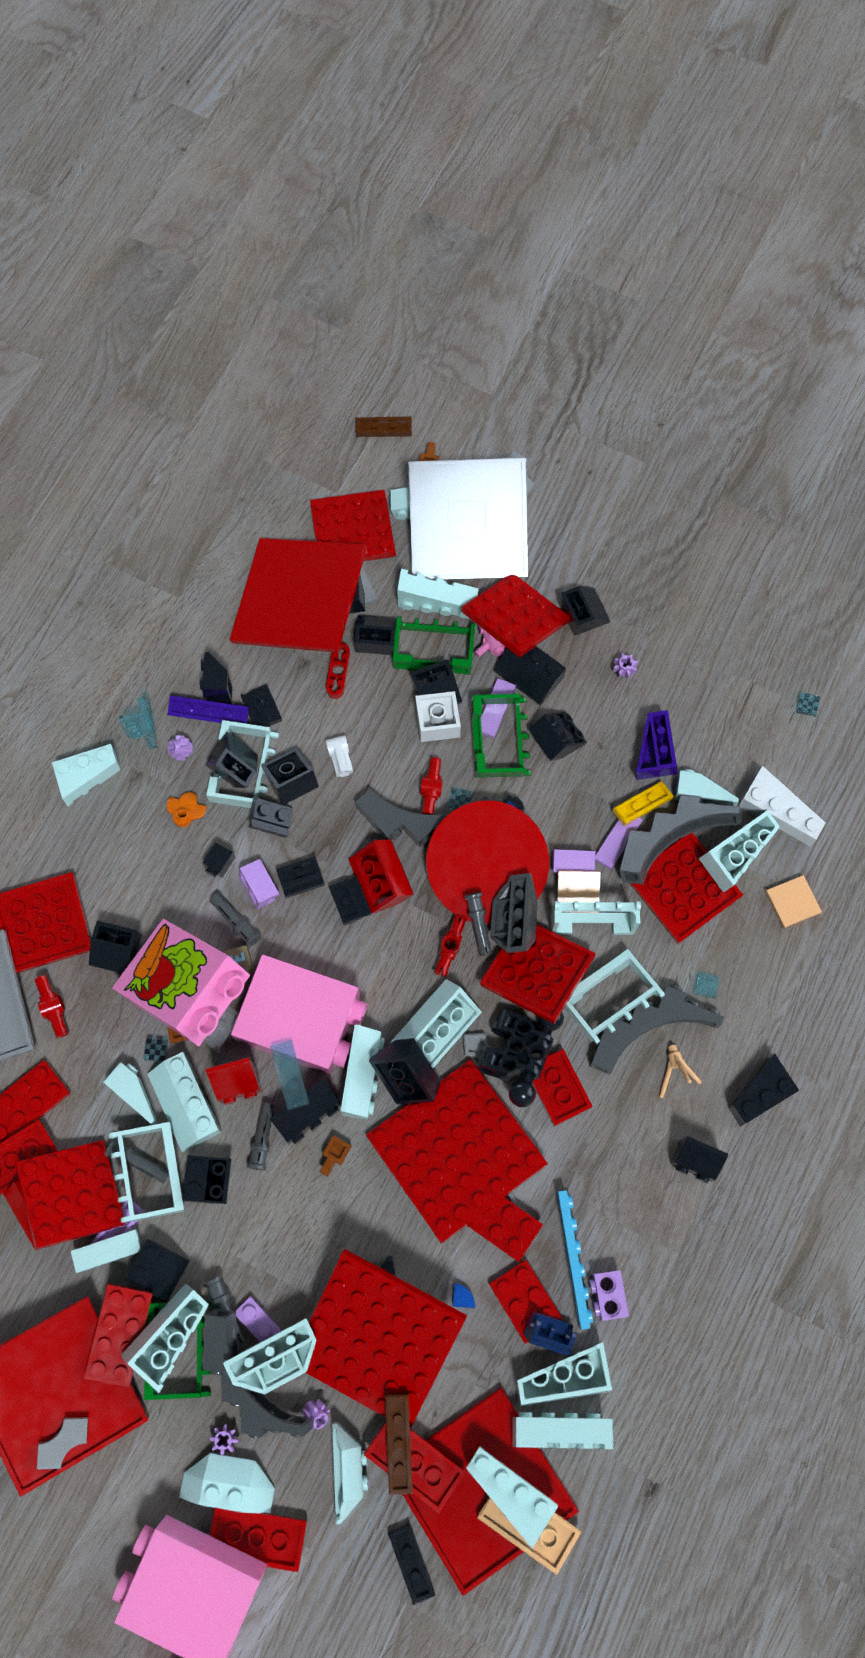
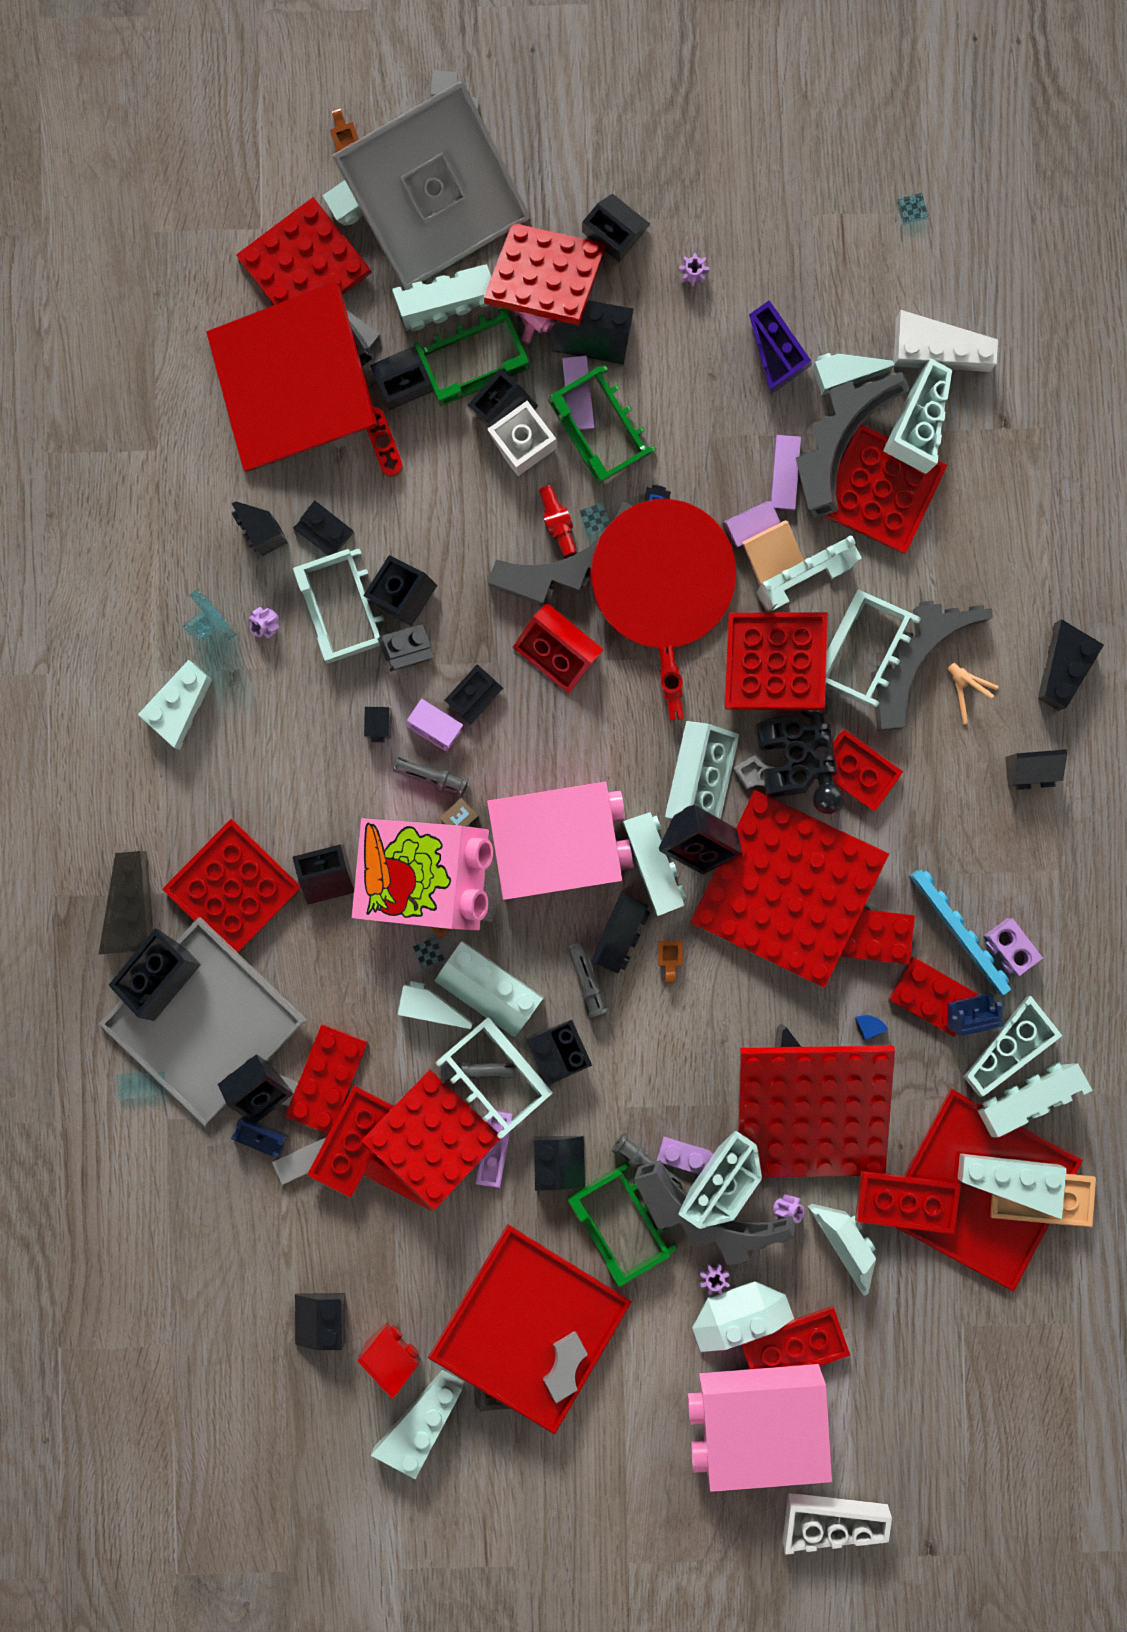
camera: 25 degrees left, 15 degrees up
(51, 1006) = (295, 967): red pin -> none
(106, 1251) = (498, 1172): light aqua tile -> none
(118, 1325) = (560, 1243): red plate -> none
(165, 1337) = (609, 1220): light aqua wedge -> none
(186, 807) = (308, 682): orange plate -> none
(207, 710) = (268, 564): dark purple plate -> none
(233, 761) = (332, 607): black slope -> none
(234, 1081) = (532, 943): red slope -> none
(289, 1075) = (587, 908): clear light blue tile -> none
(338, 751) = (435, 533): white piece -> none
(350, 900) = (540, 691): black plate -> none
(383, 426) = (267, 117): reddish brown tile -> none
(398, 1444) = (885, 1194): reddish brown tile -> none
(411, 1564) = (950, 1290): black tile -> none
(477, 914) = (682, 635): dark grey pin -> none
(515, 914) = (724, 617): dark grey wedge -> none
(557, 735) = (662, 389): black slope -> none
(643, 803) = (792, 419): yellow tile -> none
(706, 985) = (955, 582): clear light blue tile -> none
(793, 901) = (1001, 443): light nougat tile -> none

